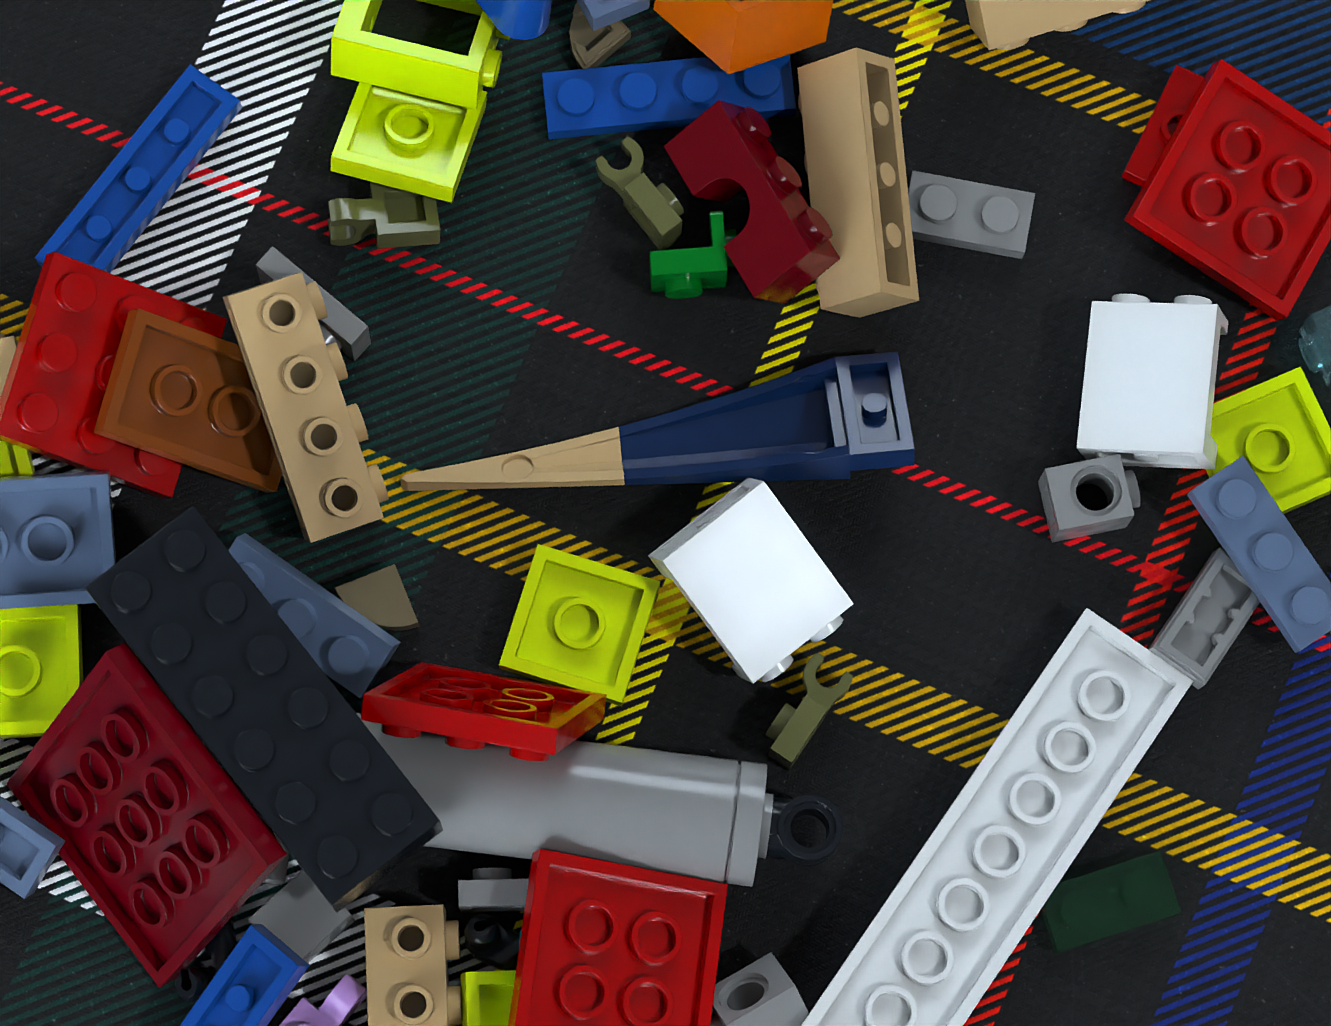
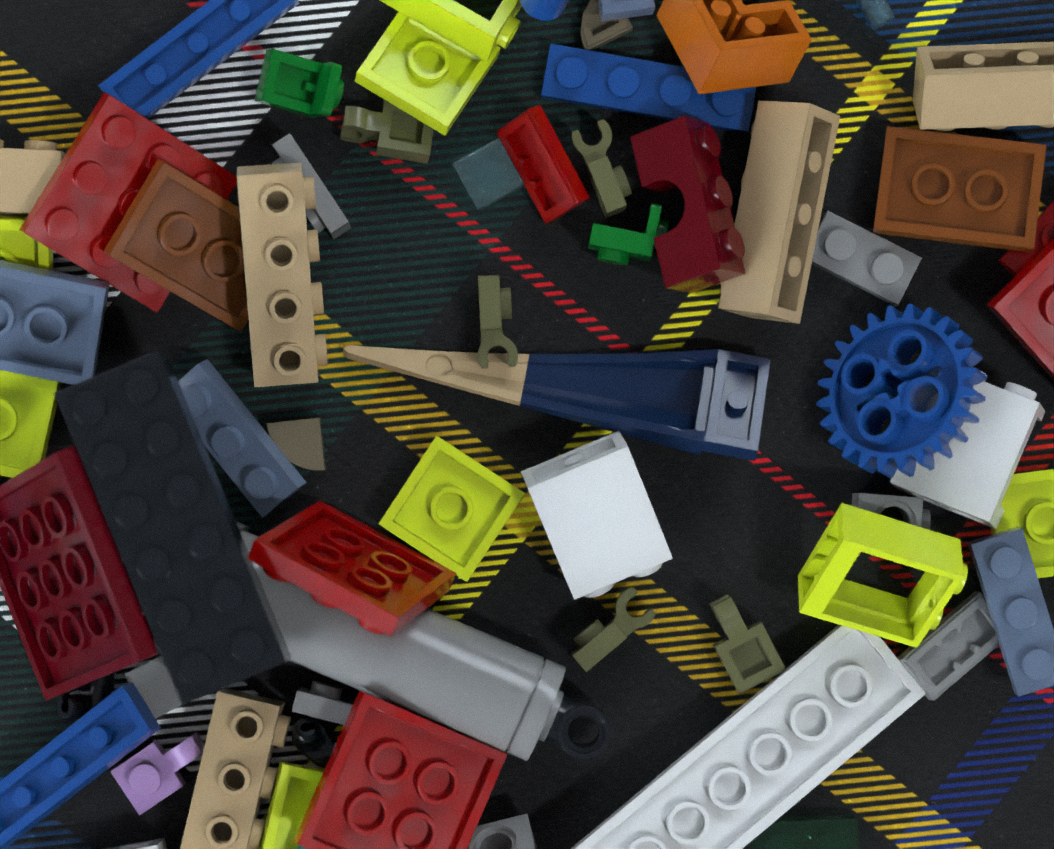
camera: 20 degrees right, 10 degrees up
(268, 194) = (299, 84): none -> green bracket
(513, 236) = (488, 174): none -> clear light blue plate
(562, 382) = (494, 306): none -> olive plate
(572, 207) = (542, 164): none -> red plate
(971, 693) = (745, 651): none -> olive plate
(1053, 105) = (959, 189): none -> dark orange plate
(1057, 339) = (901, 391): none -> blue gear
(1103, 602) = (870, 610): none -> neon yellow window

